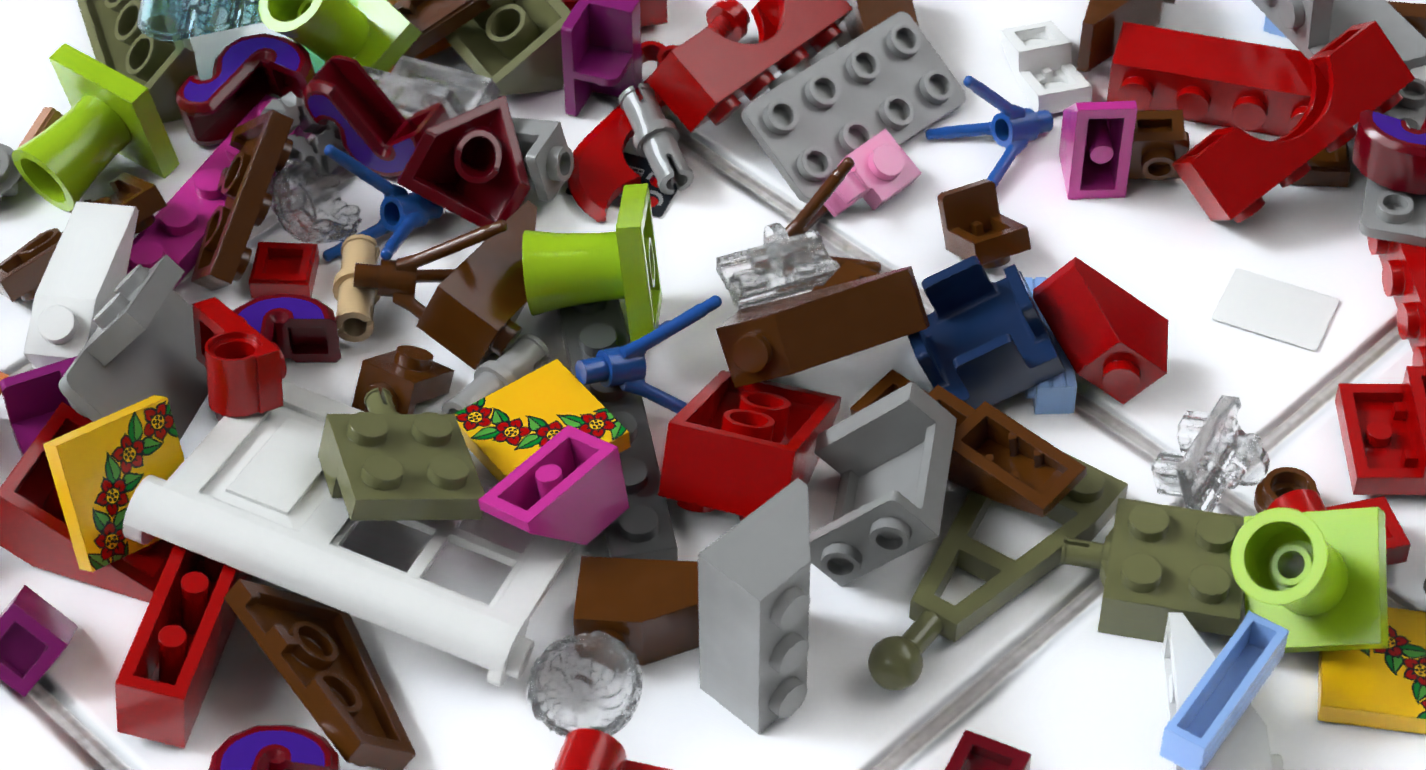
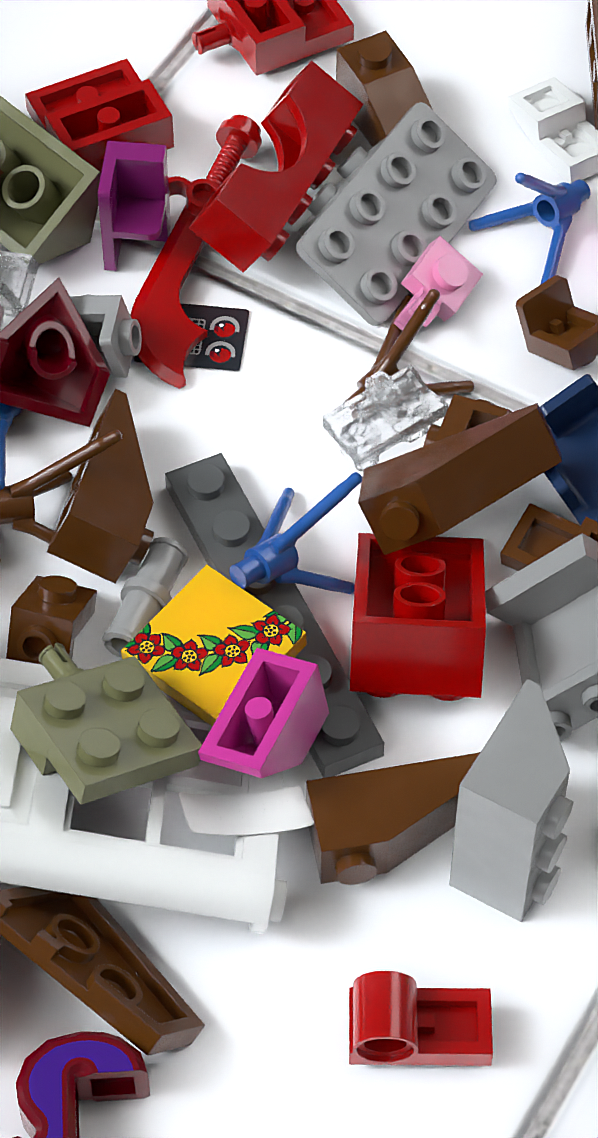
camera: 15 degrees left, 10 degrees up
(513, 572) = (246, 813): none -> white sticker
(585, 684) = (351, 918): clear hair -> none
(598, 267) = (220, 454): lime plant -> none
(656, 138) = (213, 287): light grey pin -> none

